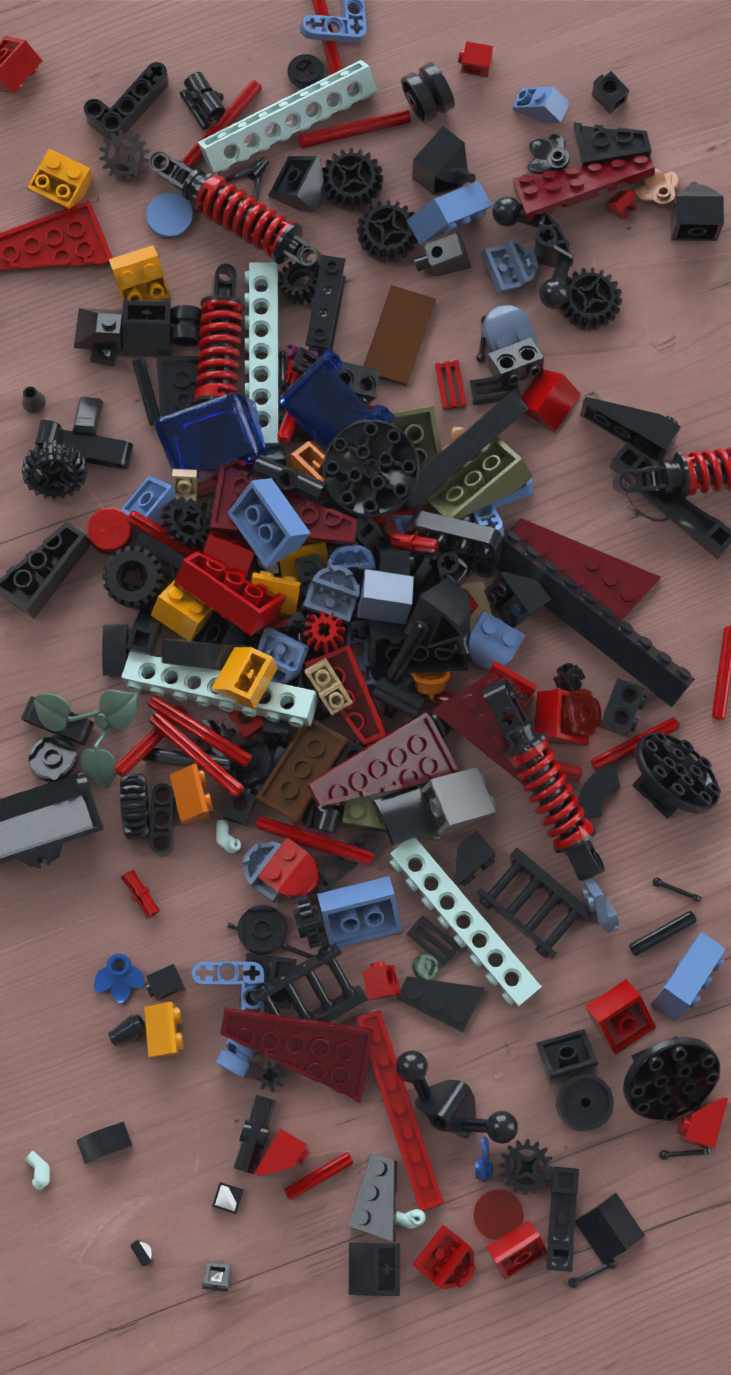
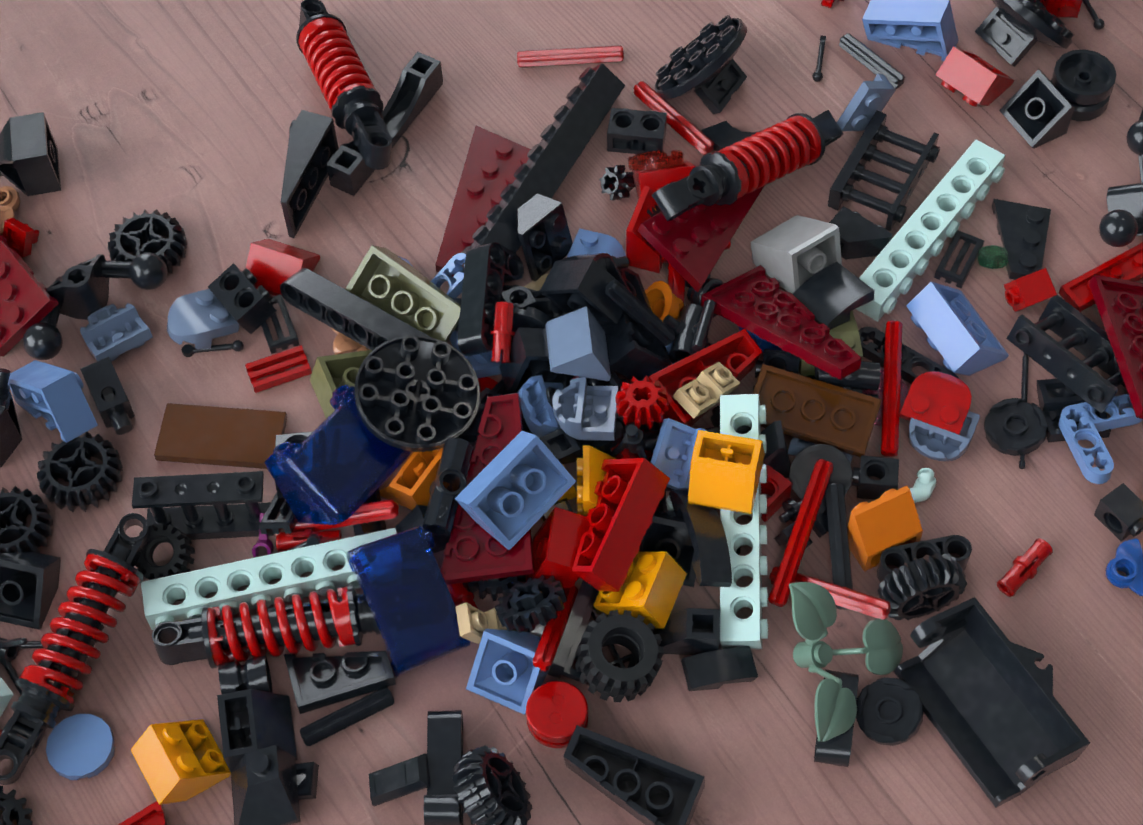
camera: 100 degrees left, 20 degrees down
(196, 754) = (837, 519): red axle -> none
(308, 921) = (992, 367): black gear -> none

